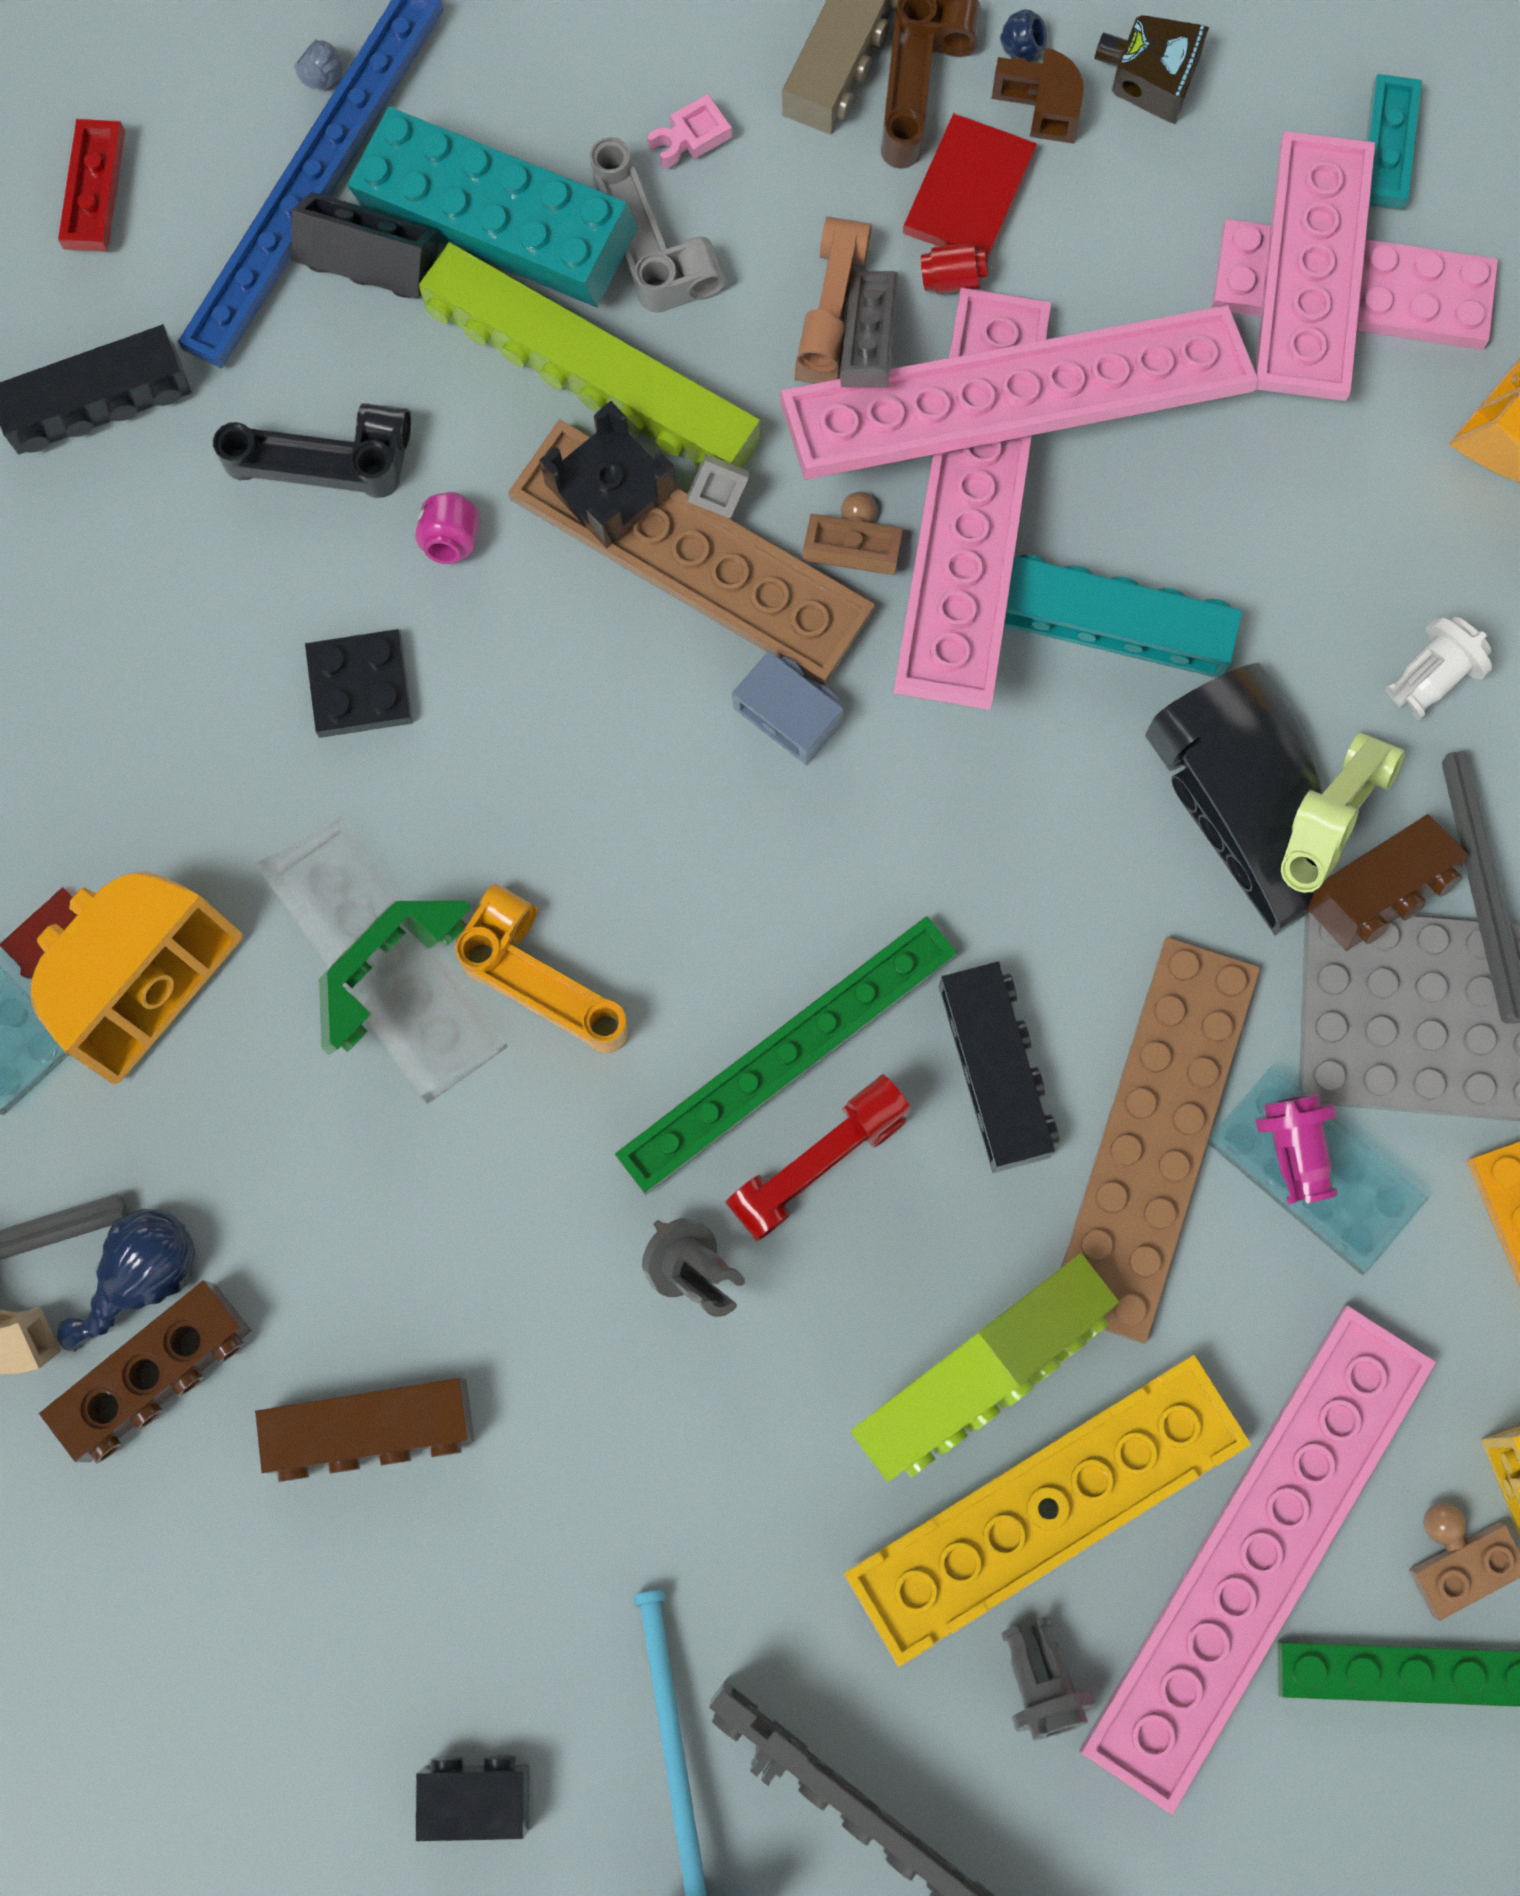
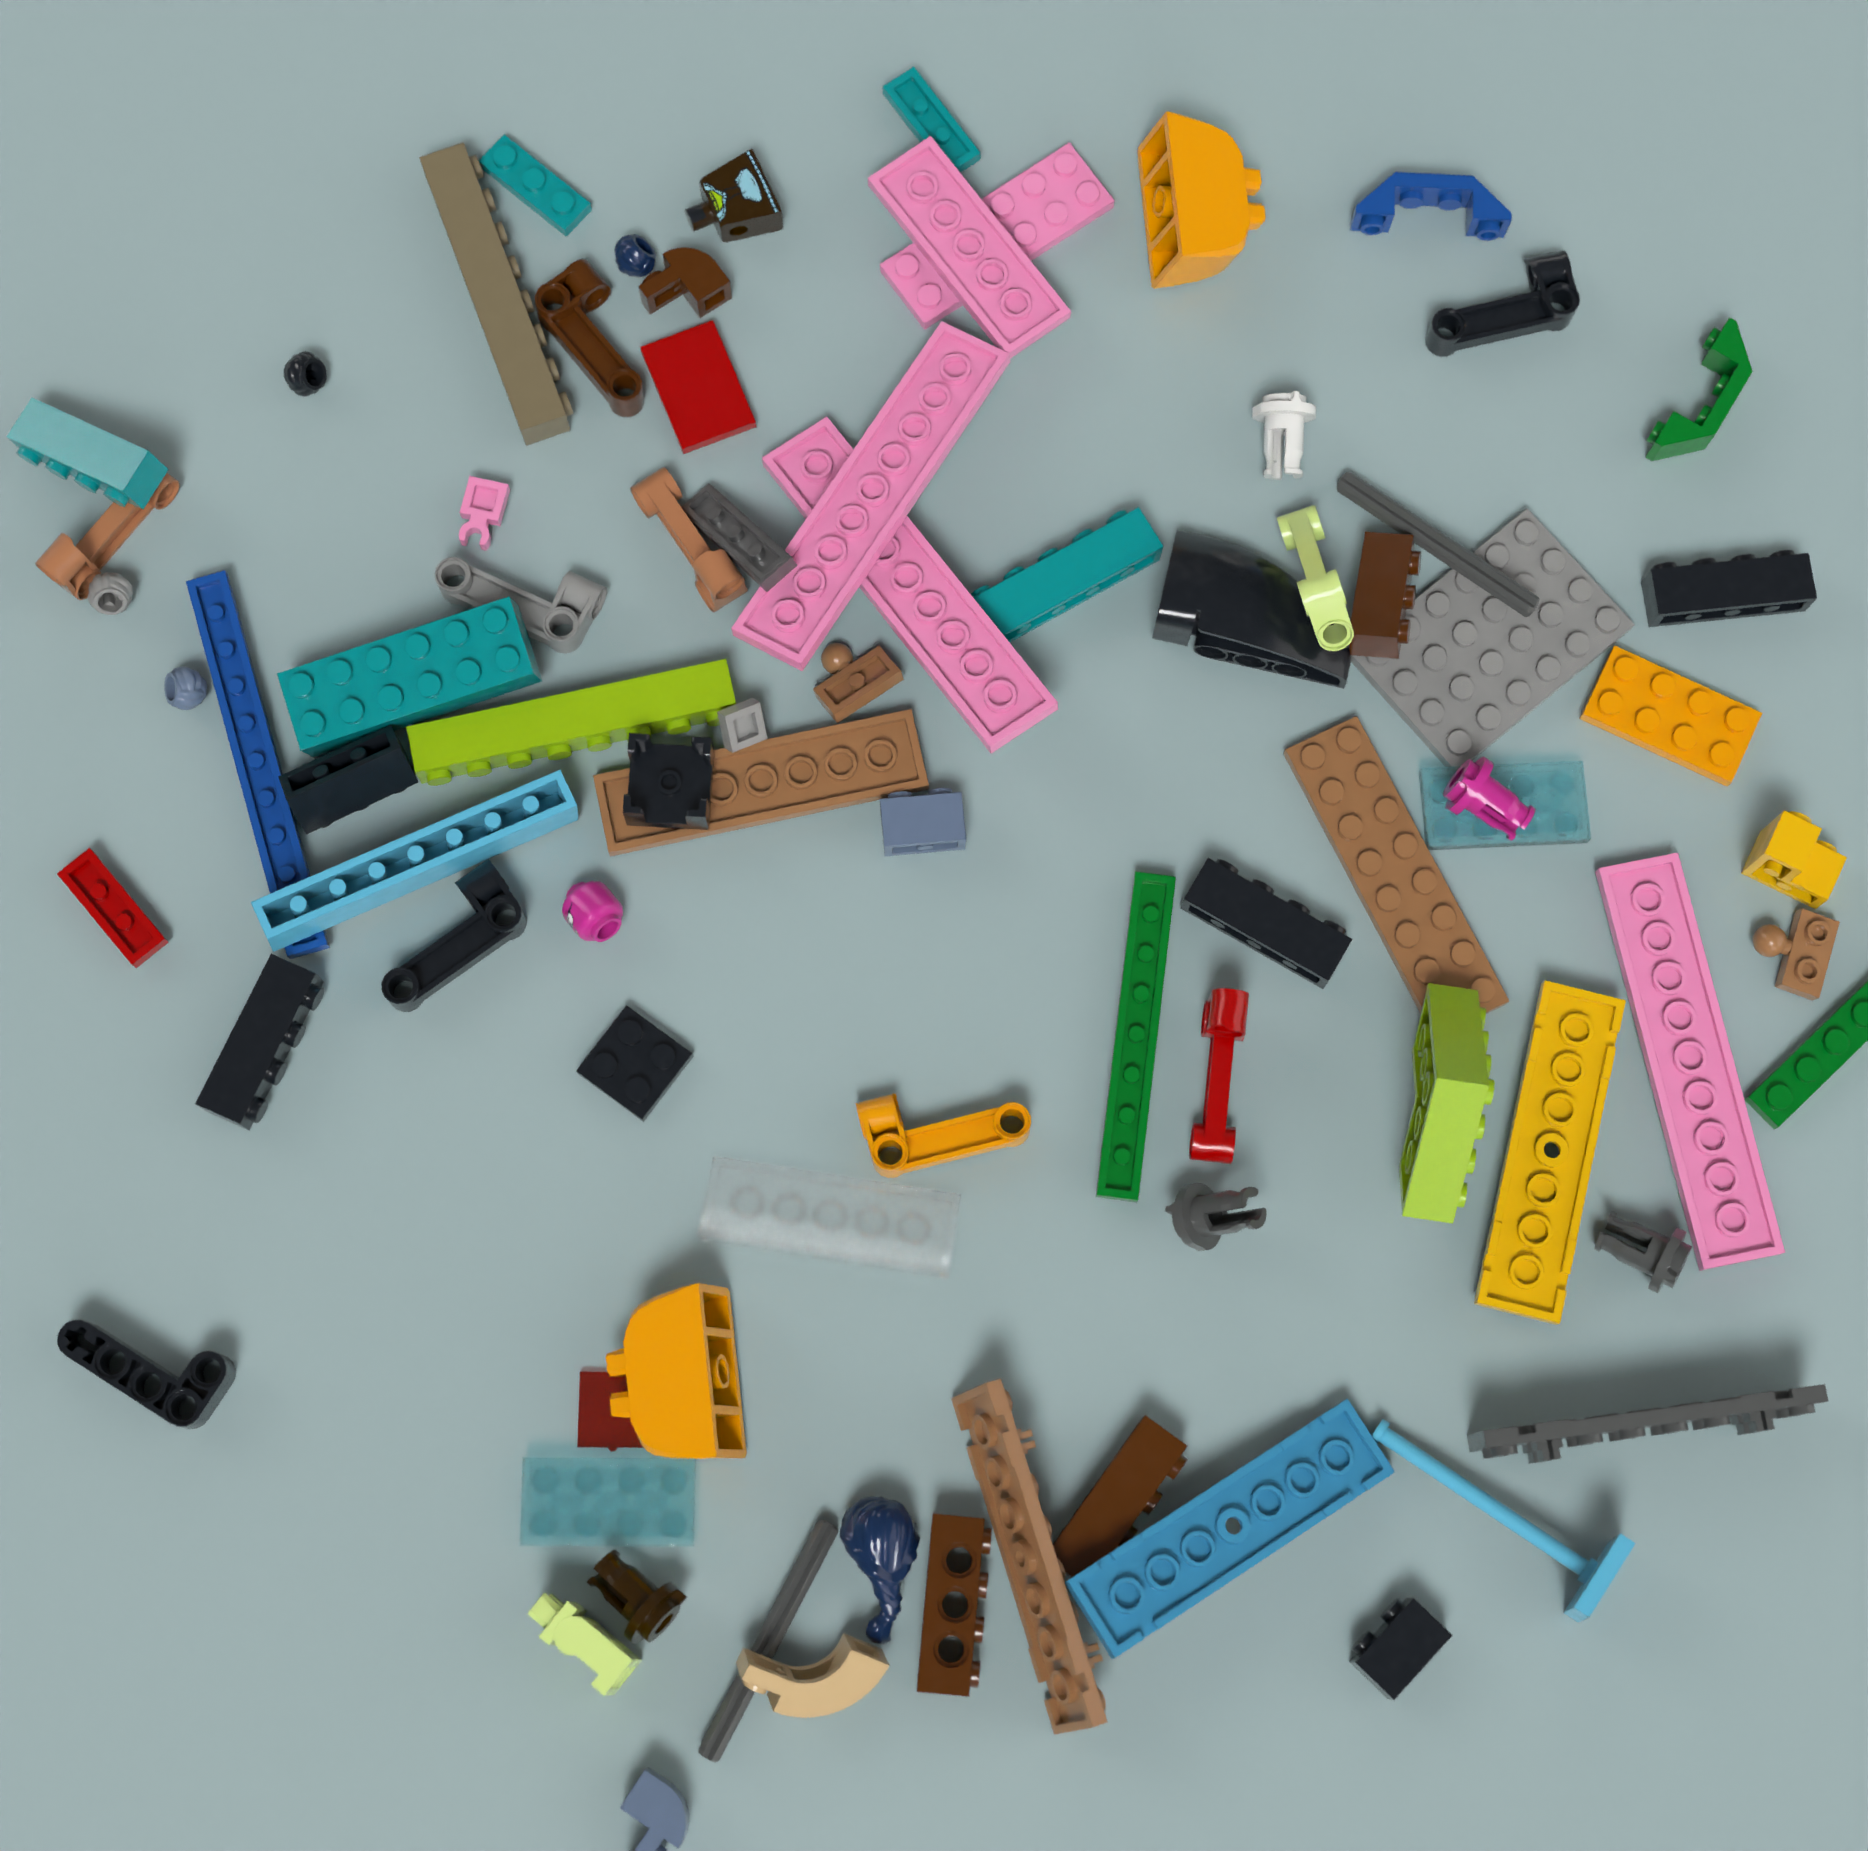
camera: 50 degrees left, 0 degrees up
(233, 1419) = (1030, 1558): none -> medium nougat piece
(341, 1012) = (851, 1271): green slope -> none
(345, 352) = (415, 860): none -> medium azure brick
(373, 1533) = (1194, 1554): none -> dark azure piece
(954, 268) = (744, 448): red brick -> none

